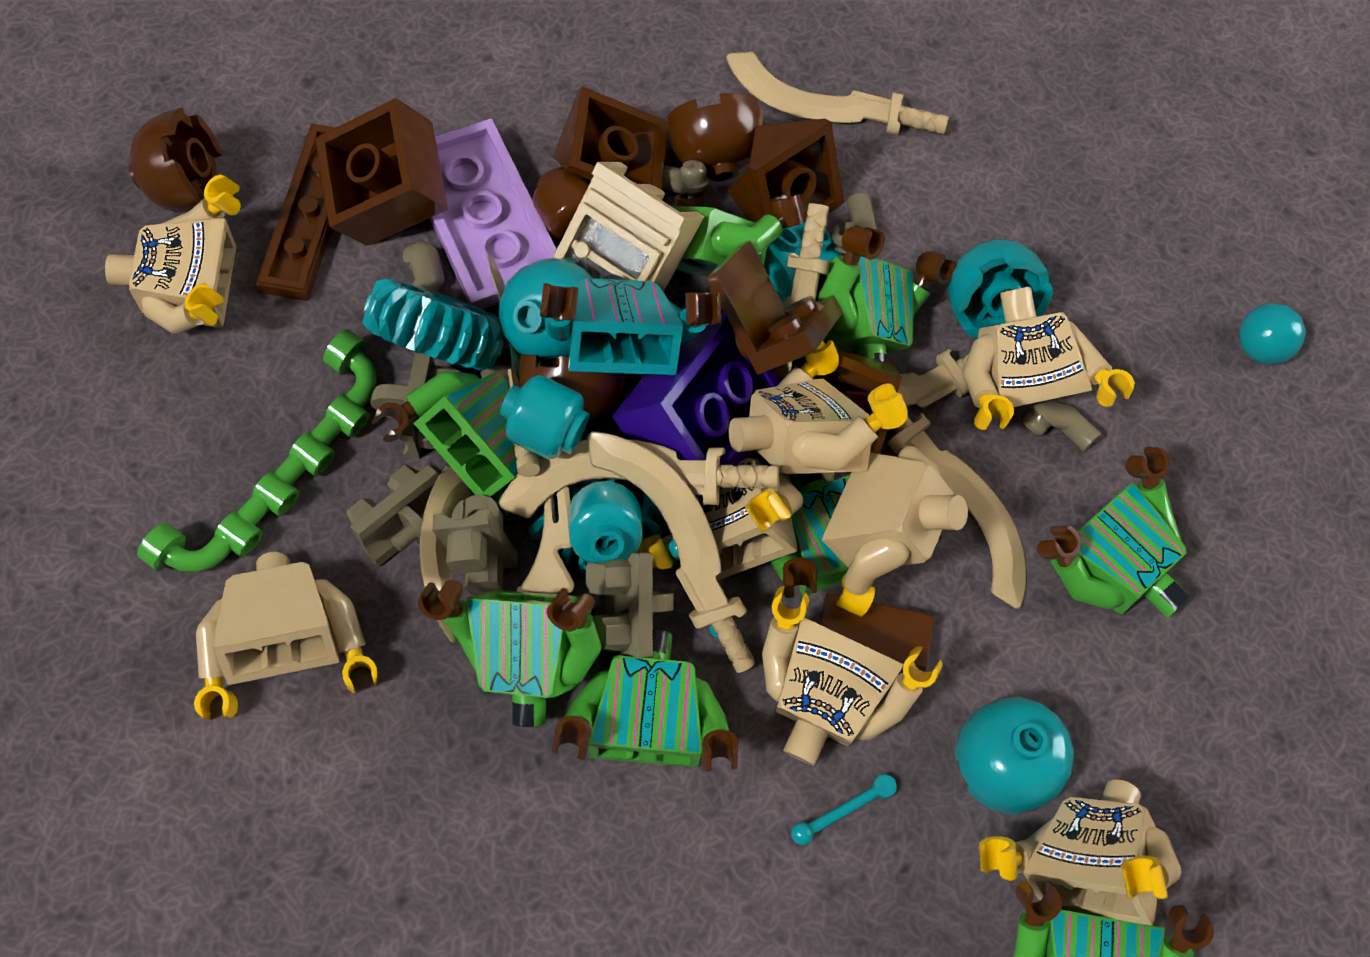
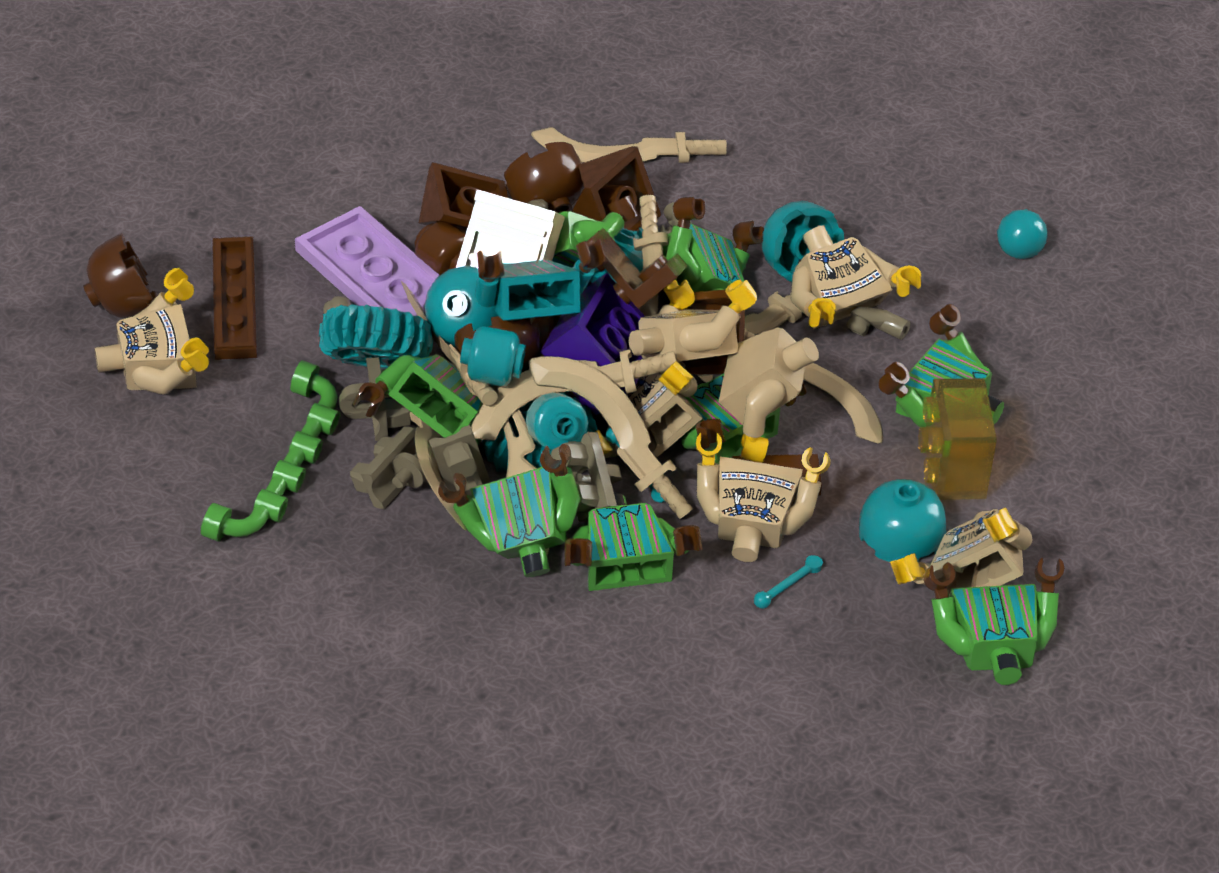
camera: 10 degrees left, 20 degrees down
(275, 626) = (329, 543): tan torso -> none
(381, 173) = (293, 251): reddish brown brick -> none
(1121, 652) = (958, 439): none -> clear yellow brick

